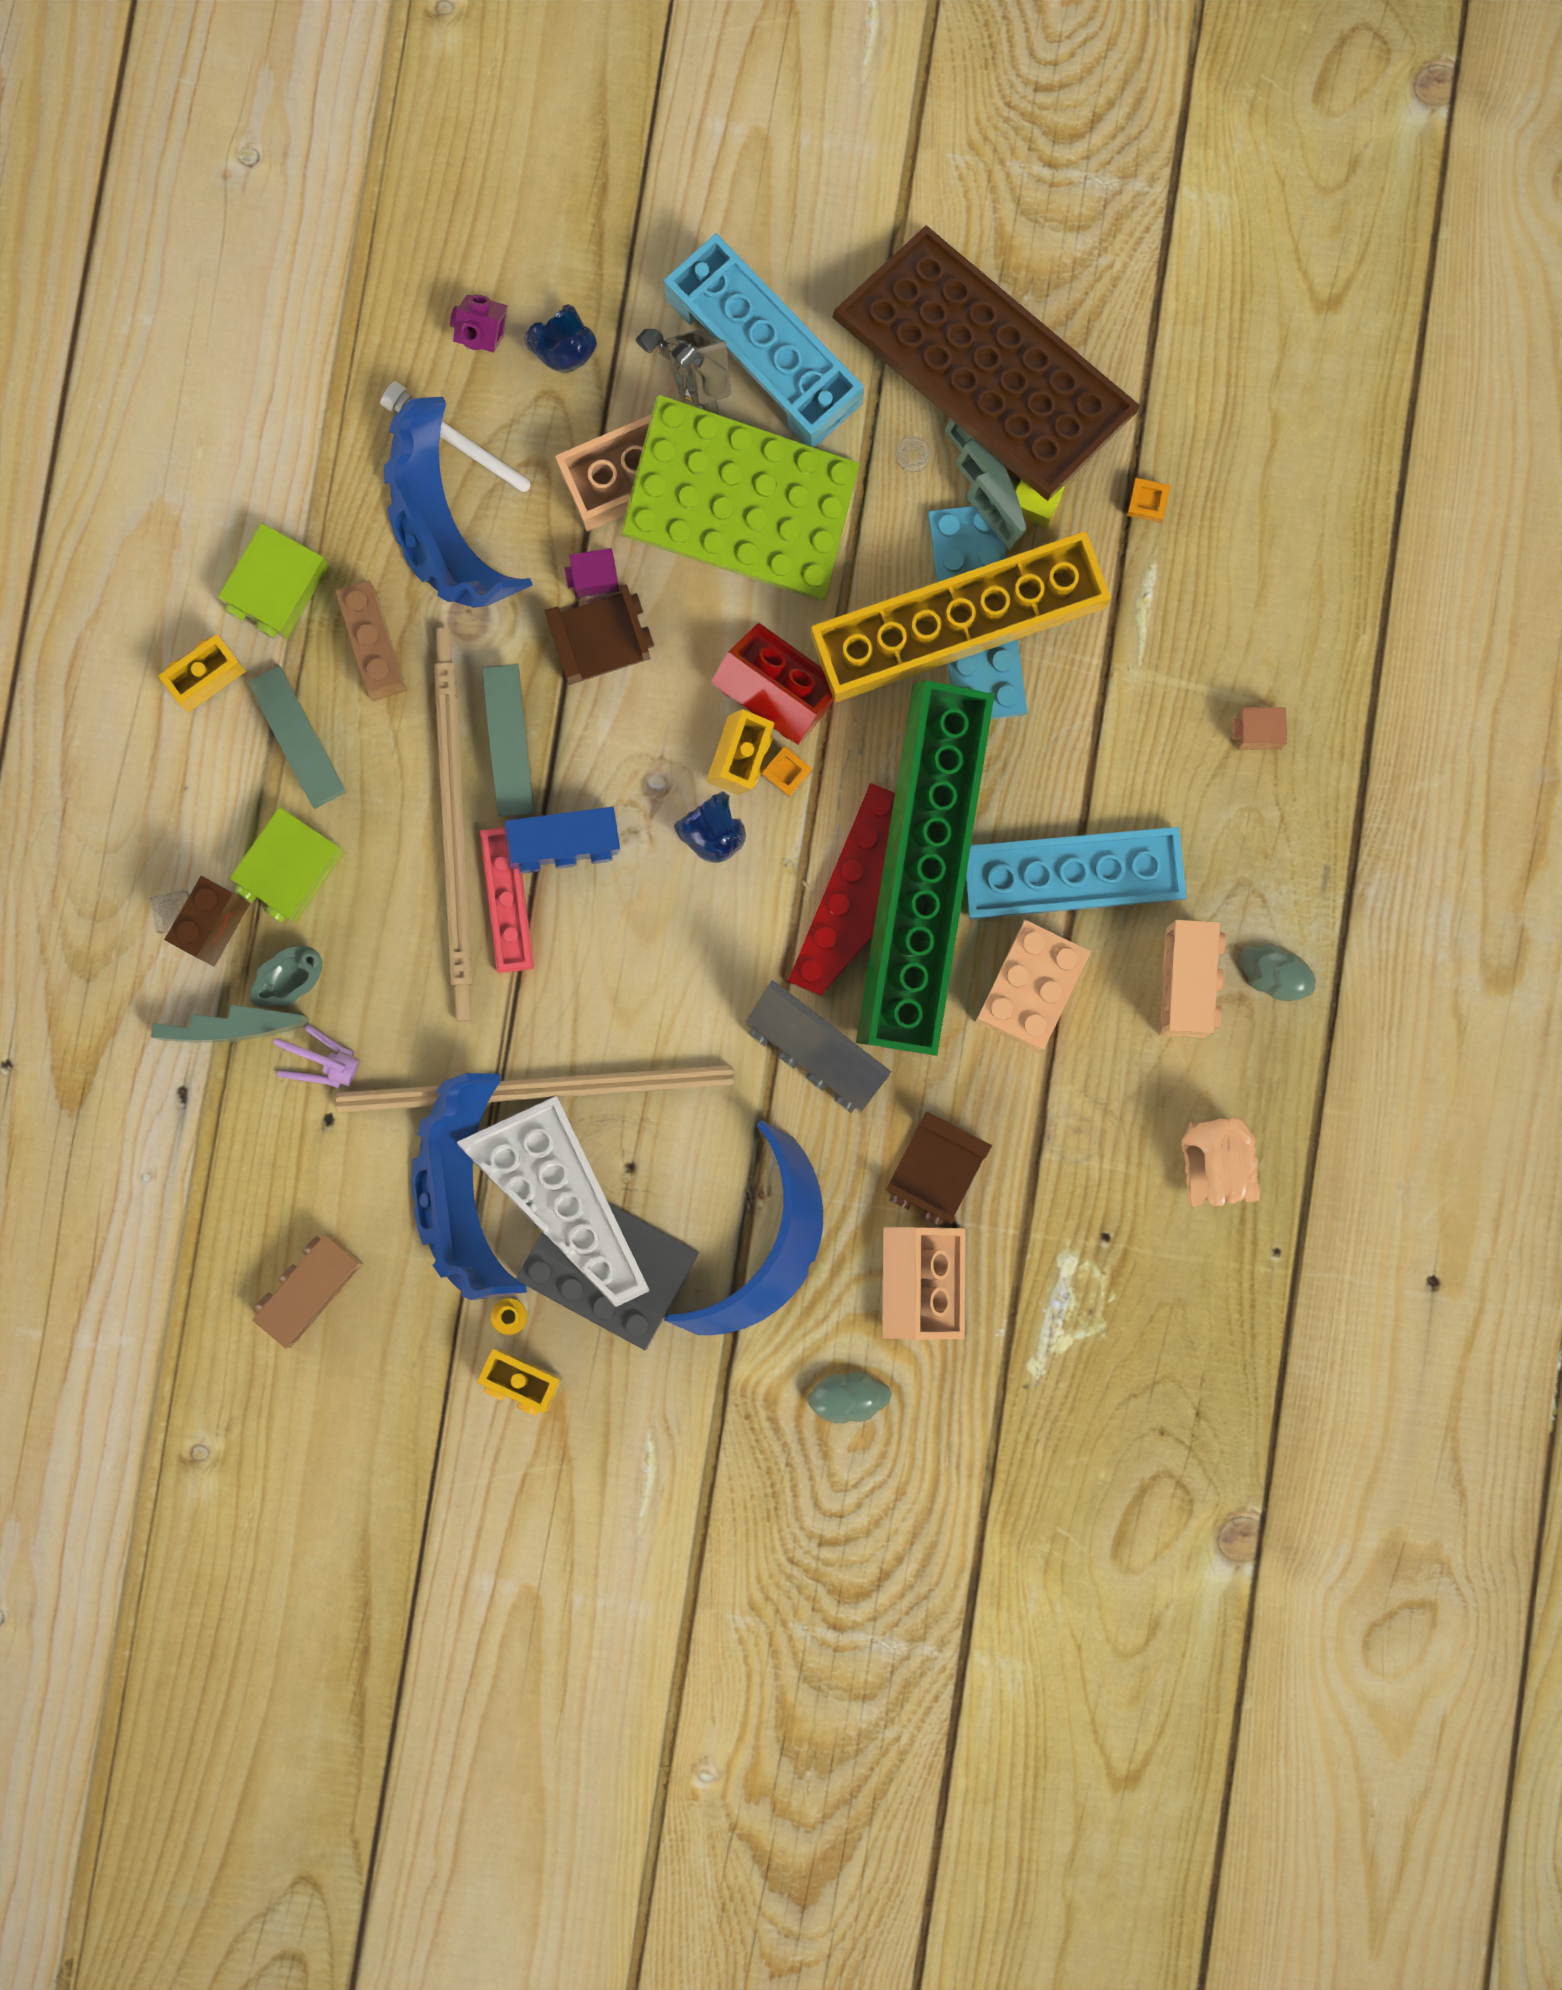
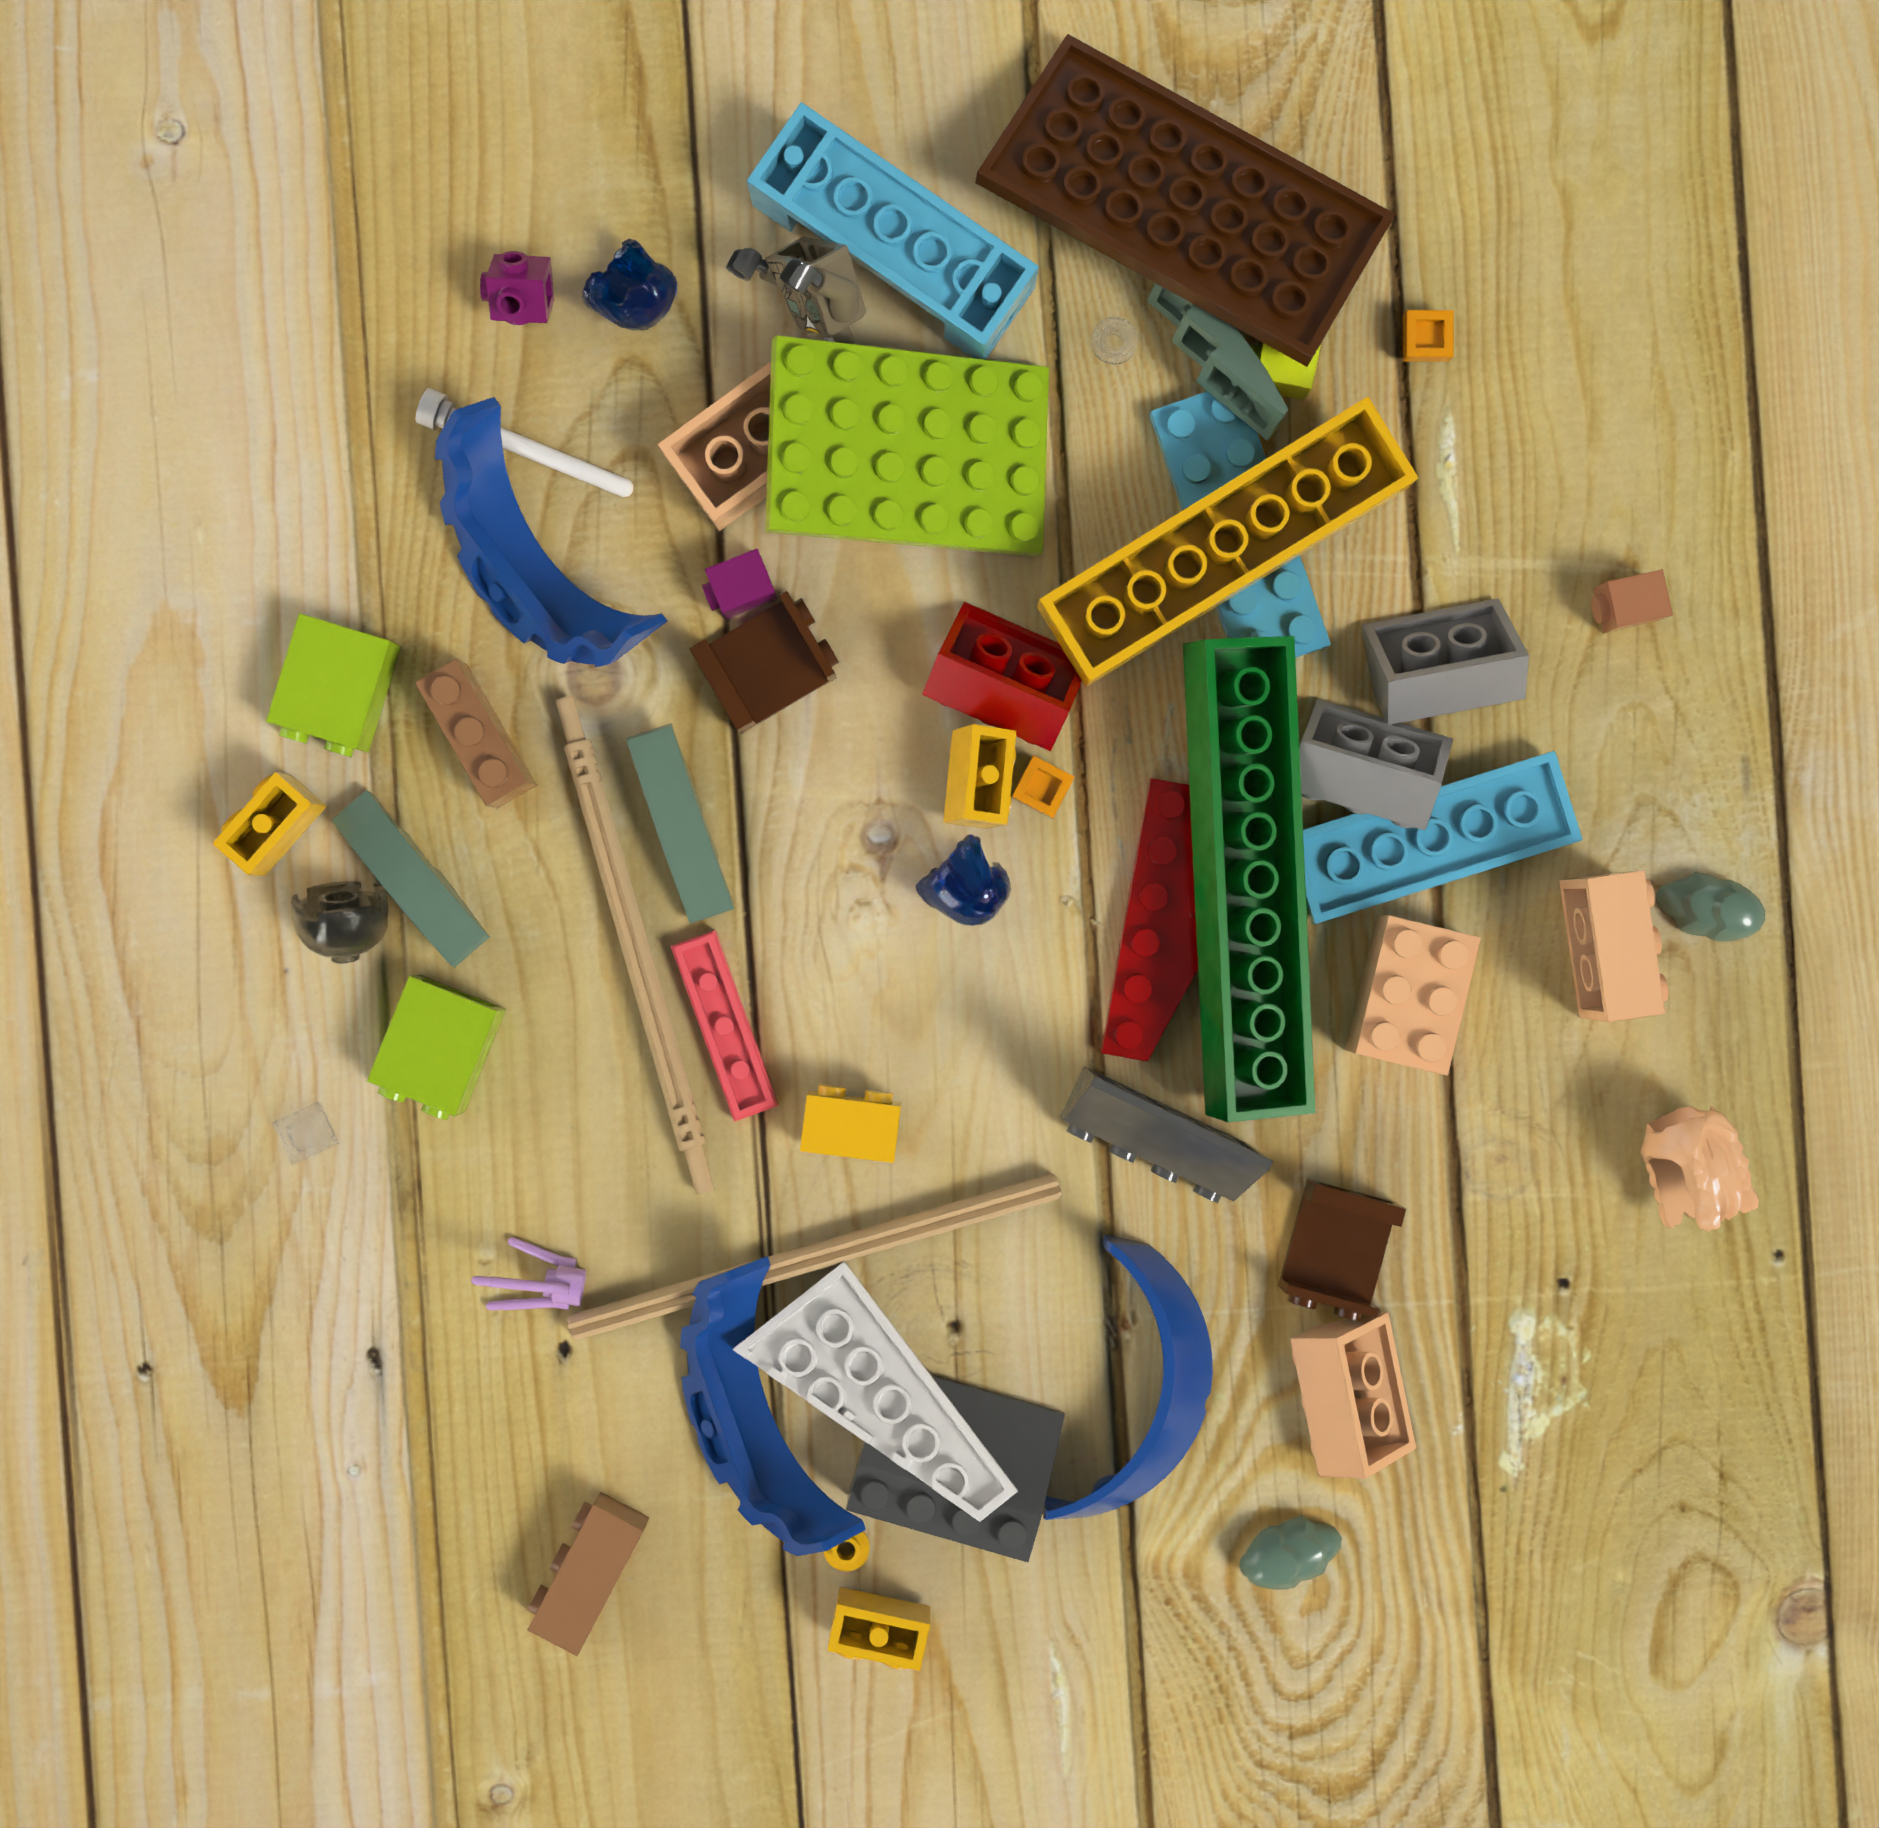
camera: 15 degrees left, 5 degrees up
(207, 921) = (350, 1146): reddish brown panel -> none
(238, 756) = (340, 919): none -> clear smoke cylinder
(242, 1024) = (425, 1258): sand green slope -> none
(286, 977) = (469, 1187): sand green arm -> none
(562, 839) = (778, 938): blue brick -> none
(585, 991) = (851, 1124): none -> yellow brick
(1036, 806) = (1372, 765): none -> light grey slope
(1110, 743) = (1445, 661): none -> light grey slope

